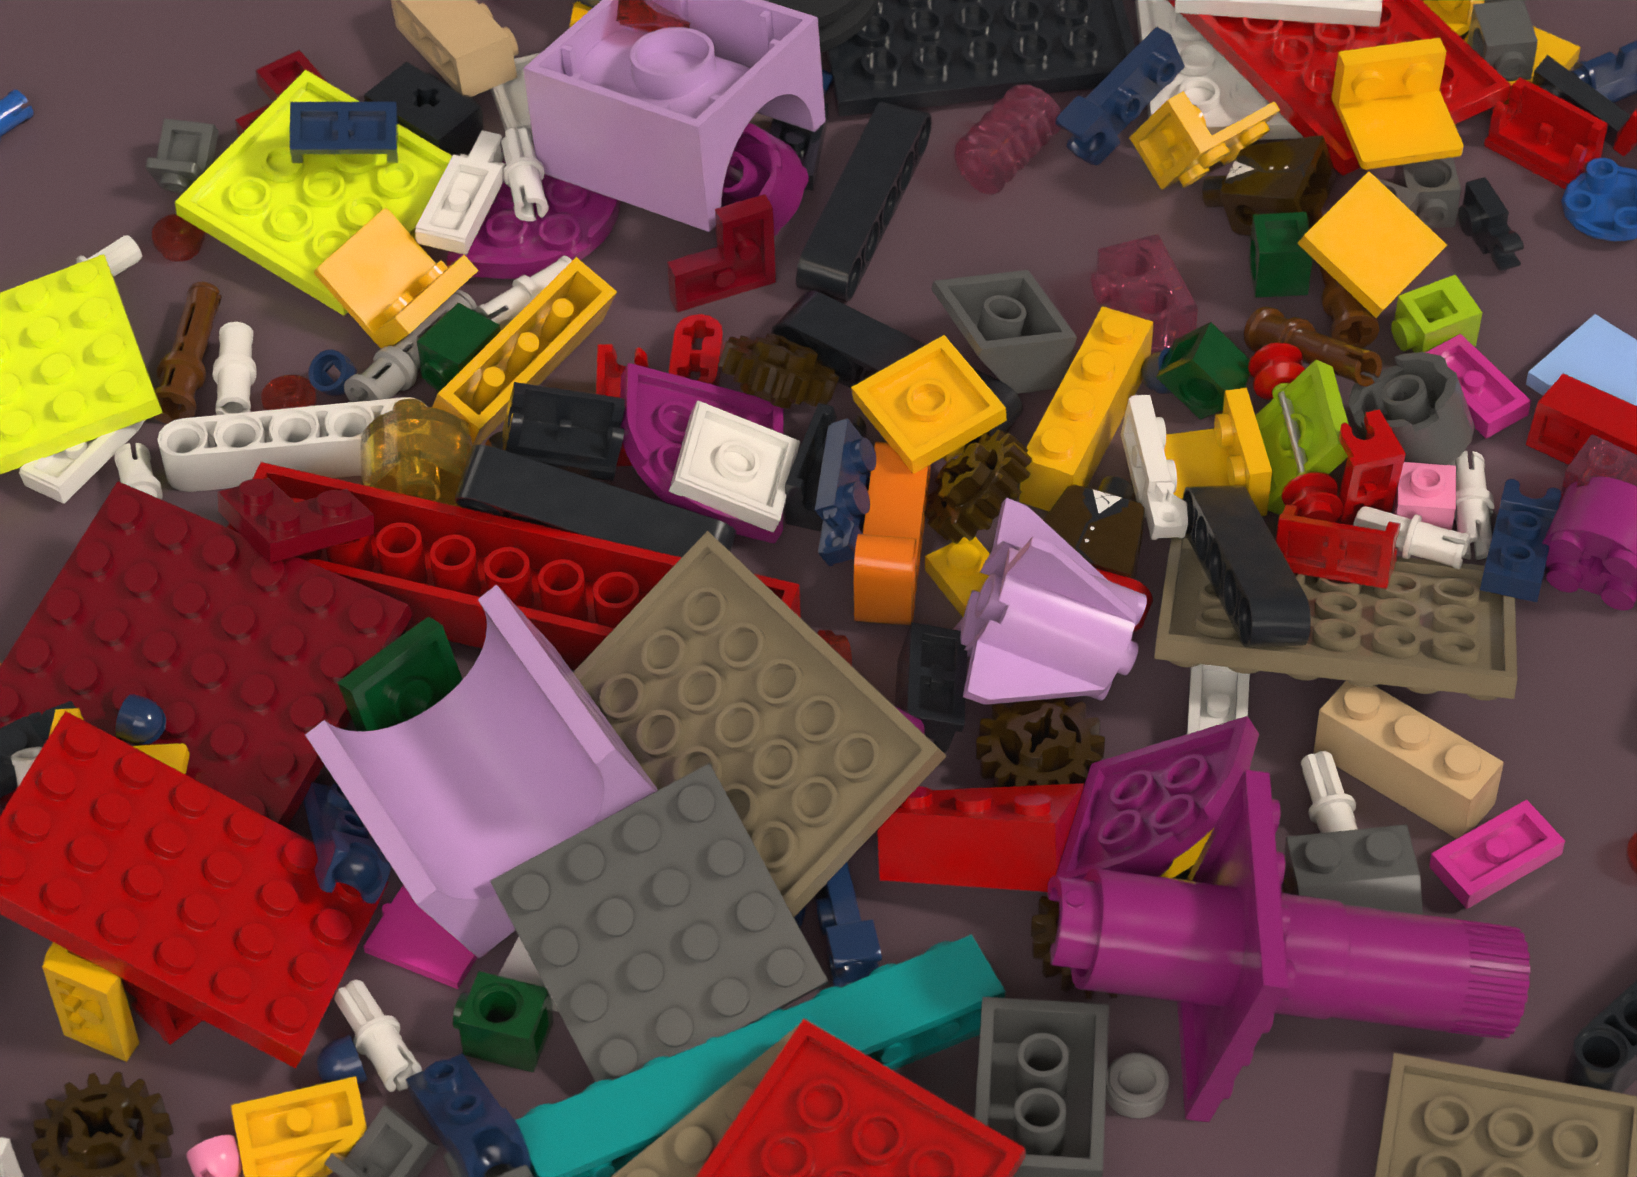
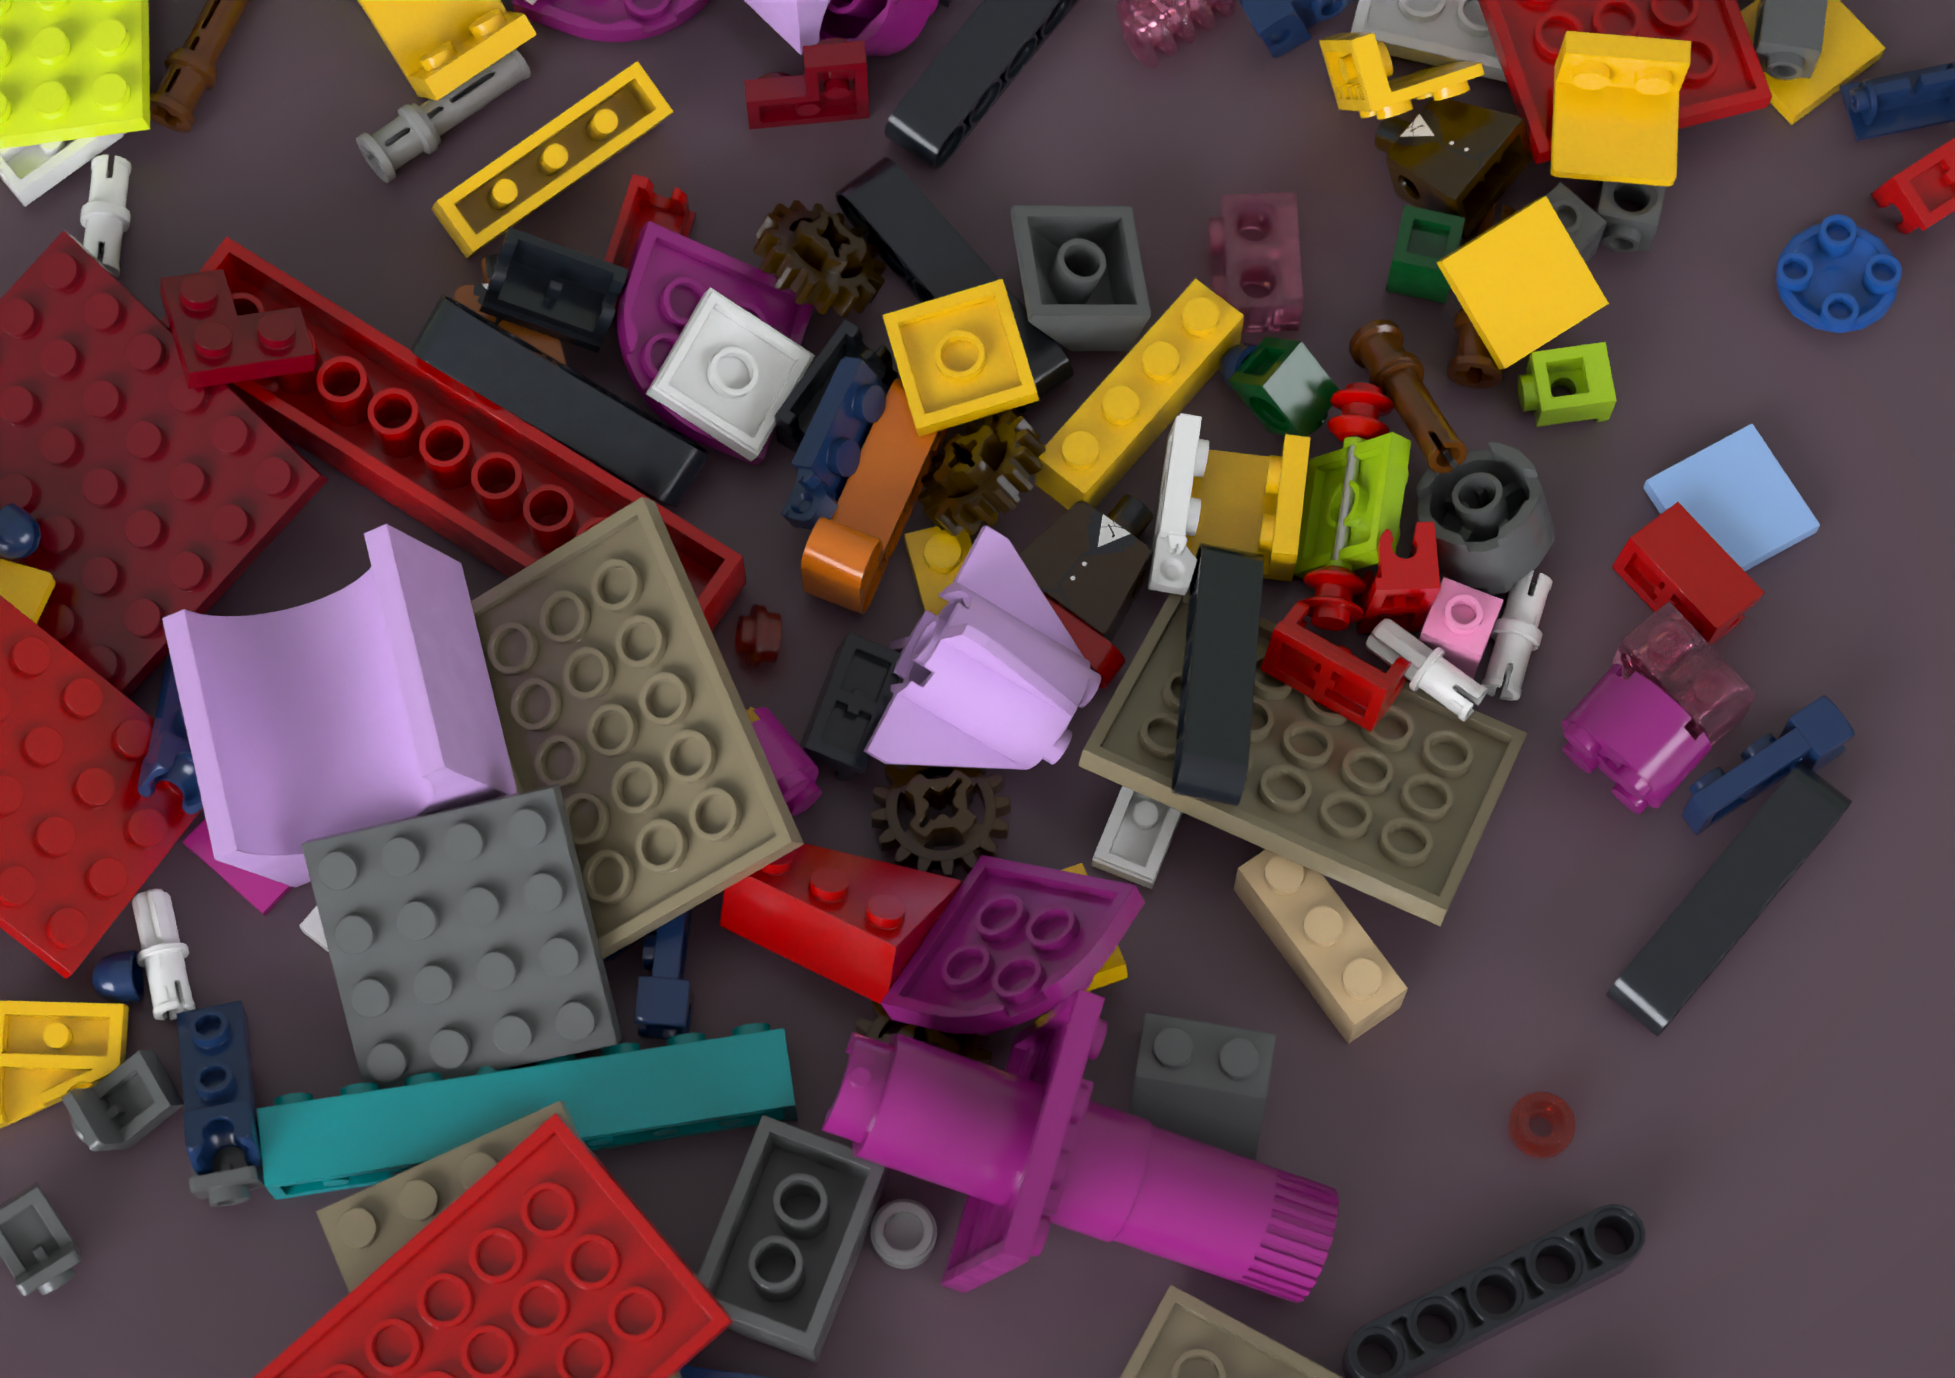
camera: 15 degrees right, 20 degrees up
(229, 447) = (265, 183): white beam -> none
(234, 369) = (247, 84): white pin -> none
(288, 392) = (302, 148): clear red plate -> none
(323, 380) = (342, 123): dark blue hinge -> none
(402, 678) = (295, 561): dark green plate -> none
(415, 451) = (394, 272): clear yellow brick -> none
(453, 344) = (488, 124): dark green brick -> none
(508, 1043) = (304, 1002): dark green brick -> none
(521, 294) = (587, 70): white pin -> none
(686, 360) = (733, 200): red beam -> none
(1330, 806) = (1220, 966): white axle -> none
(1485, 220) = (1678, 263): black plate -> none
(1488, 392) = (1578, 481): dark pink plate -> none
(1496, 854) = (1371, 1077): dark pink plate -> none
(1516, 549) = (1532, 719): dark blue plate -> none
(1545, 133) = (1793, 164): red hinge -> none
(1567, 86) = (1829, 114): black plate -> none

